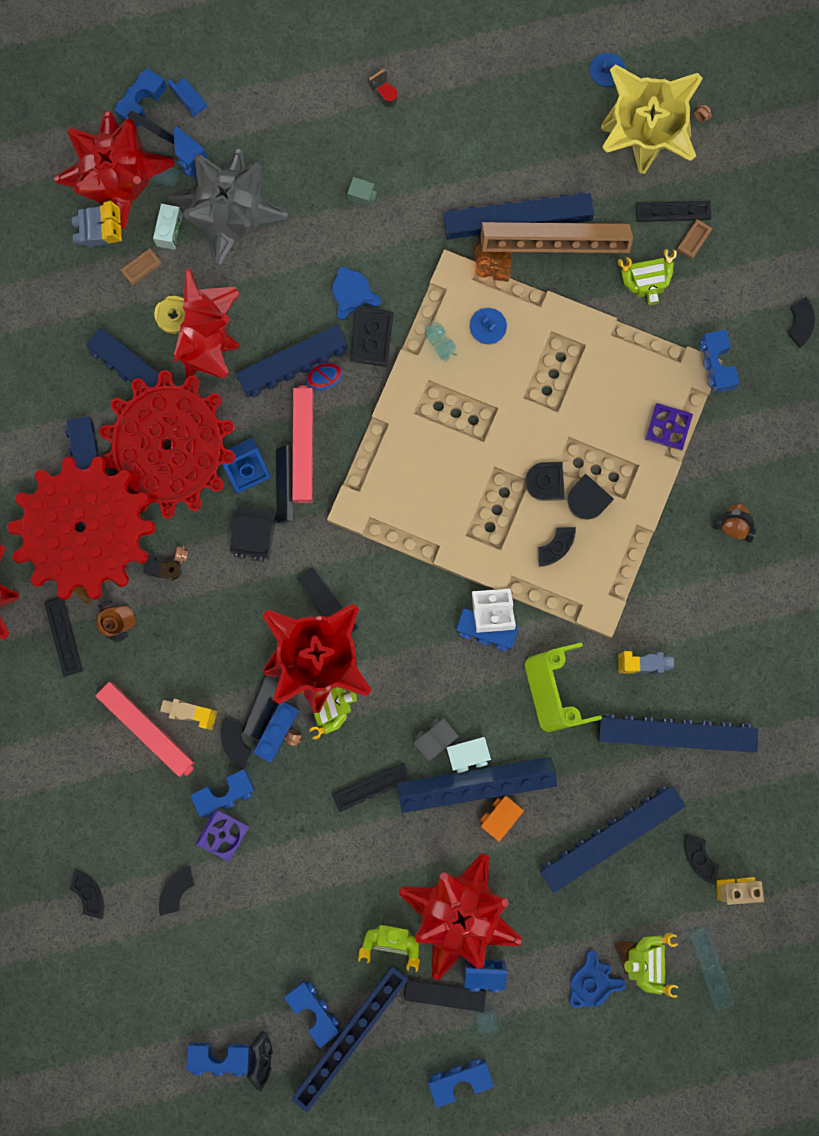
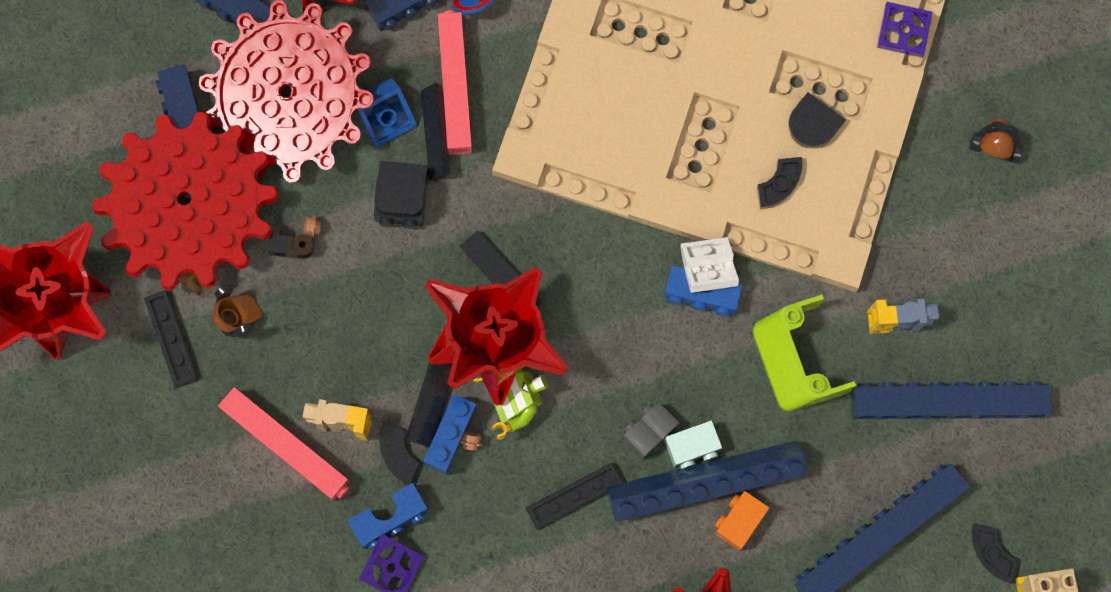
camera: 10 degrees left, 5 degrees down
(546, 481) = (760, 105): black tile -> none

